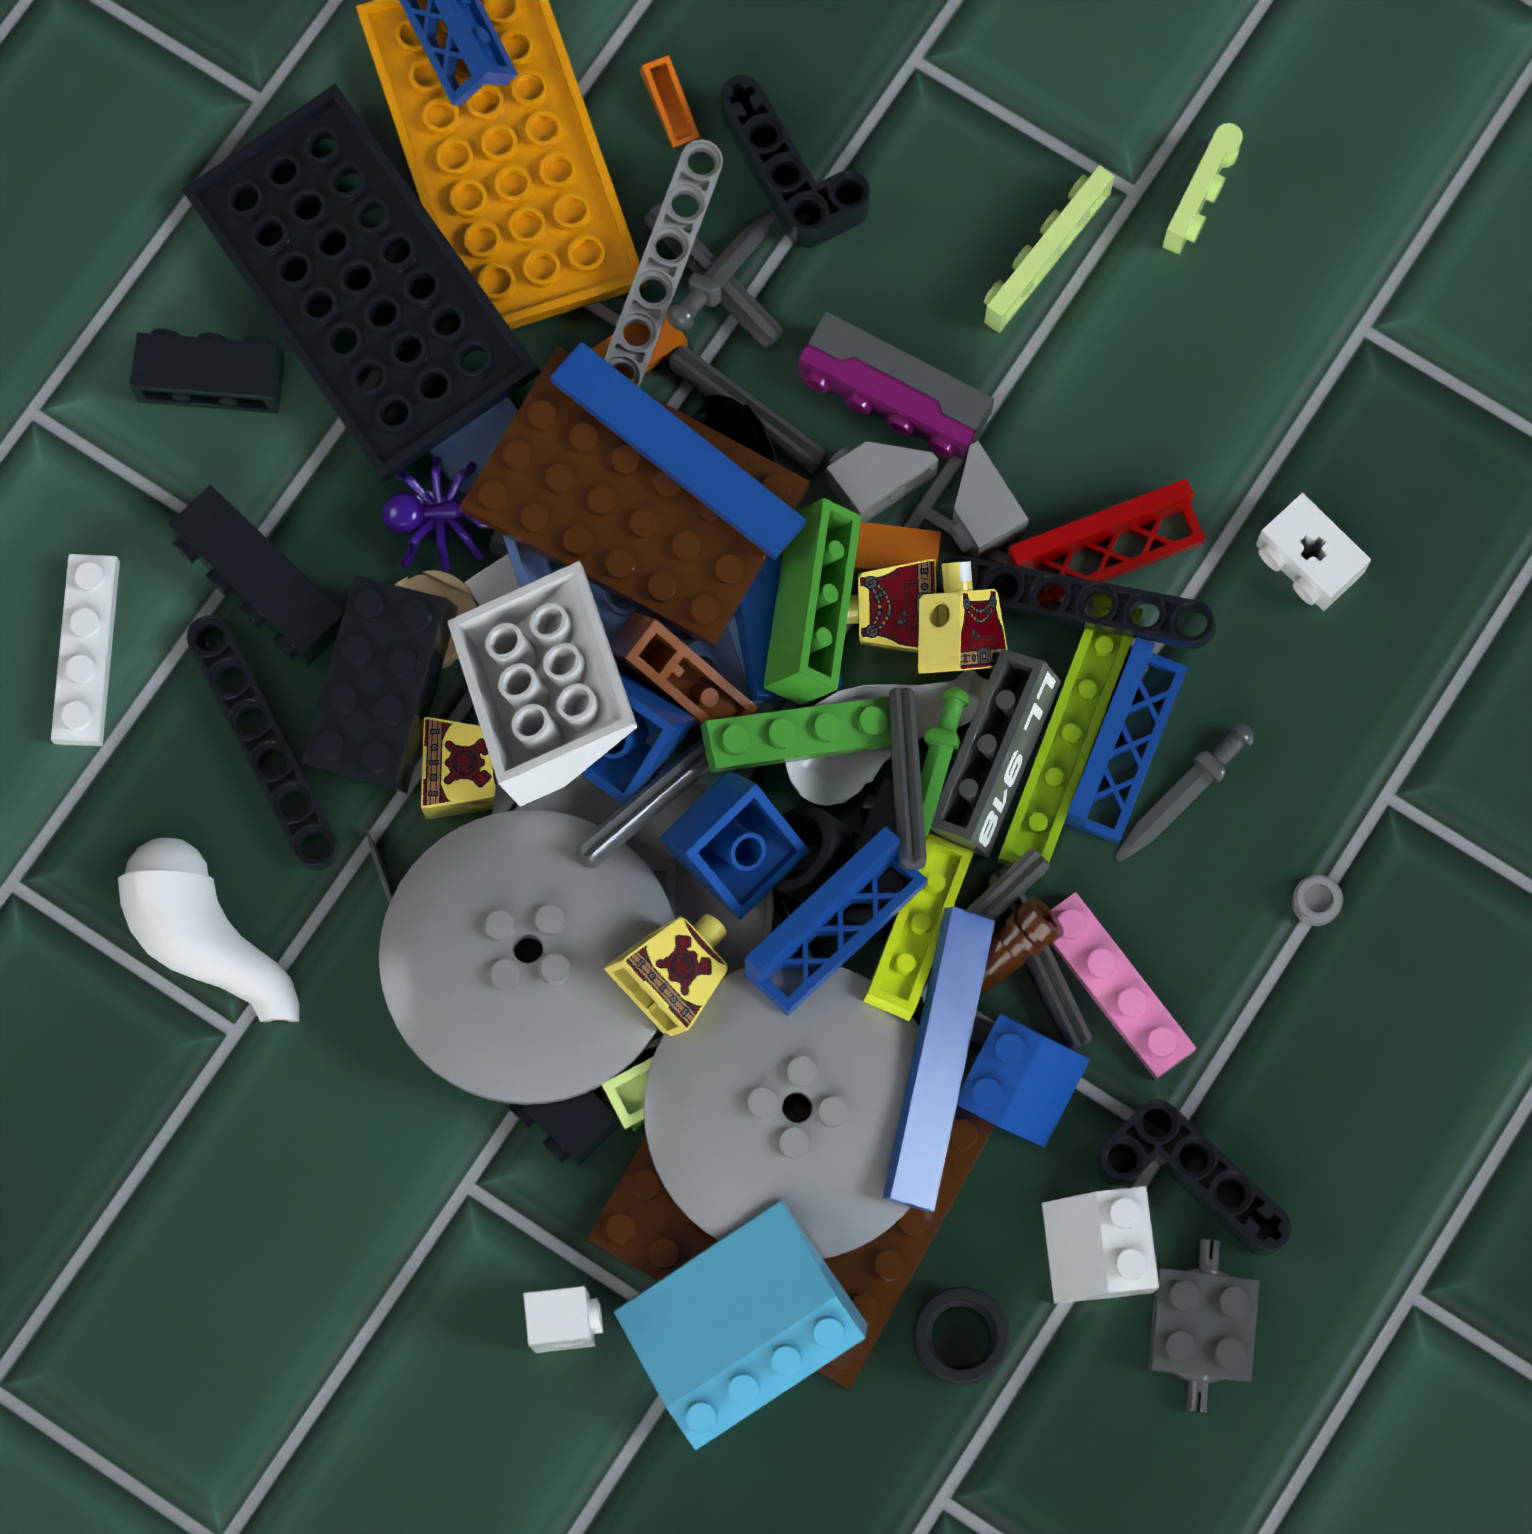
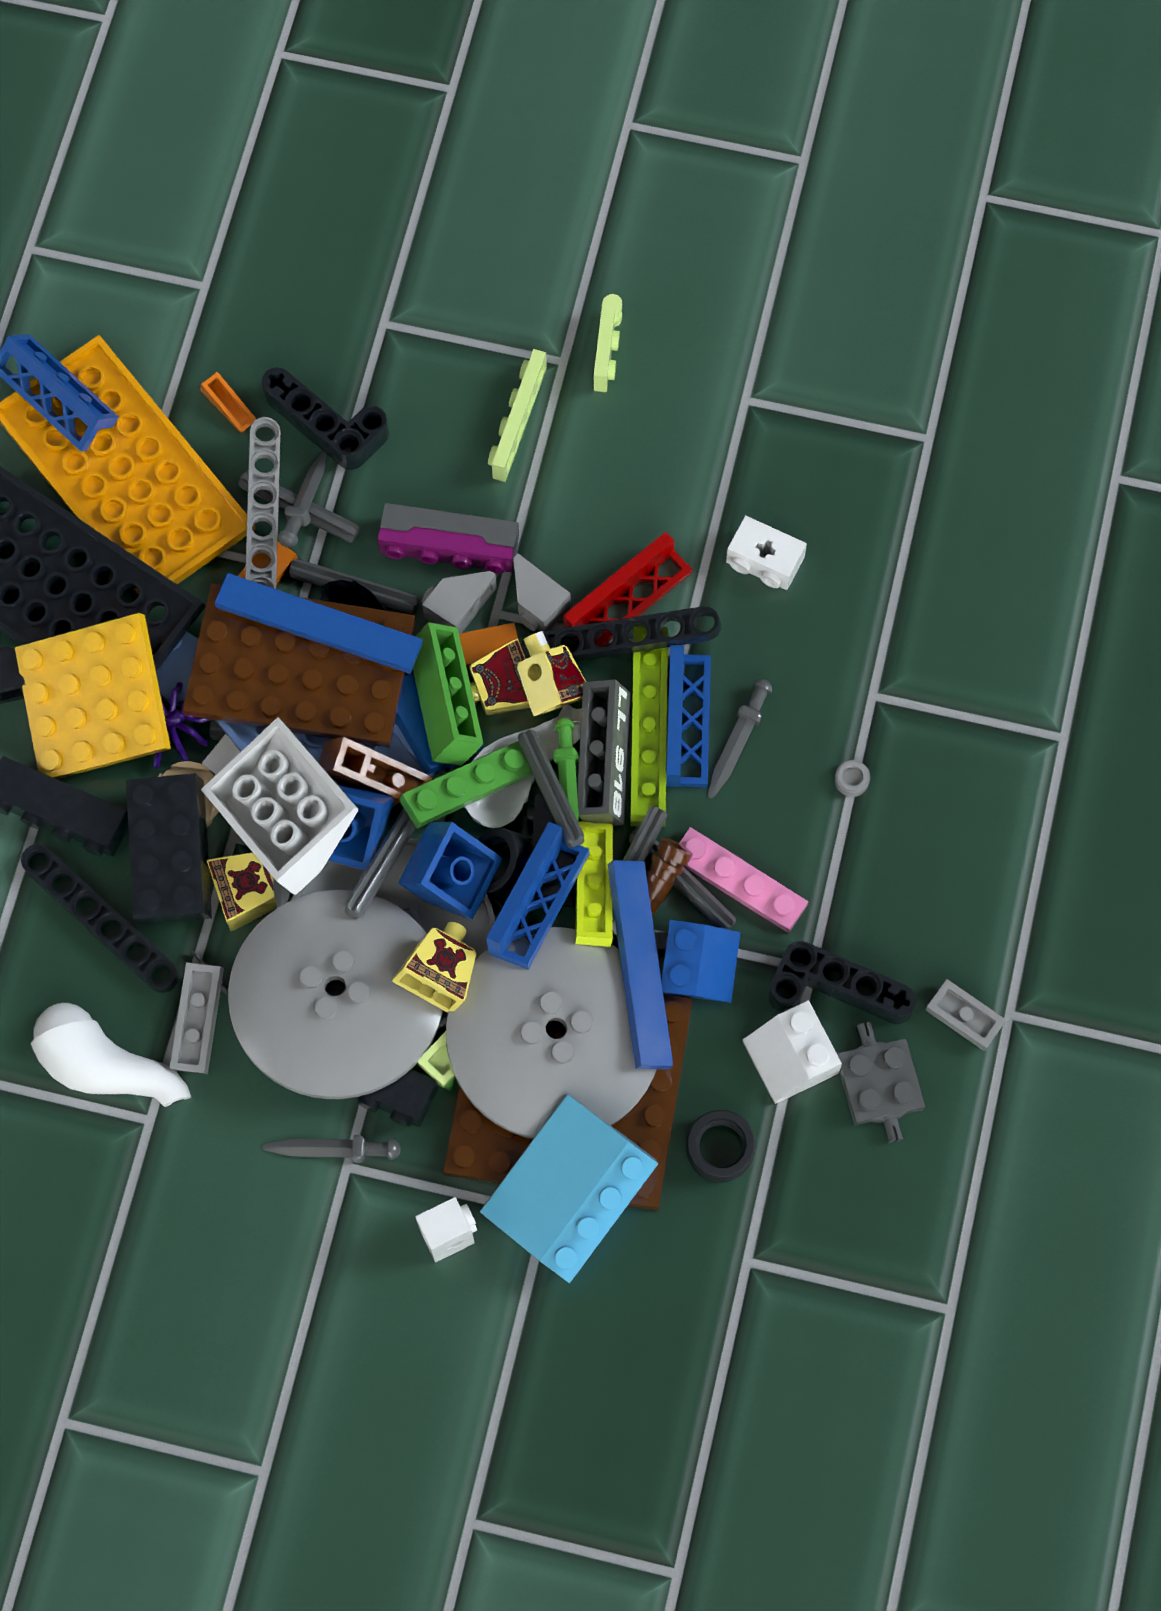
camera: 20 degrees left, 5 degrees down
(339, 921) = (196, 1018): none -> light grey plate
(352, 446) = (93, 697): none -> yellow plate
(485, 1167) = (355, 1149): none -> dark grey sword
(1351, 1277) = (965, 1015): none -> light grey plate

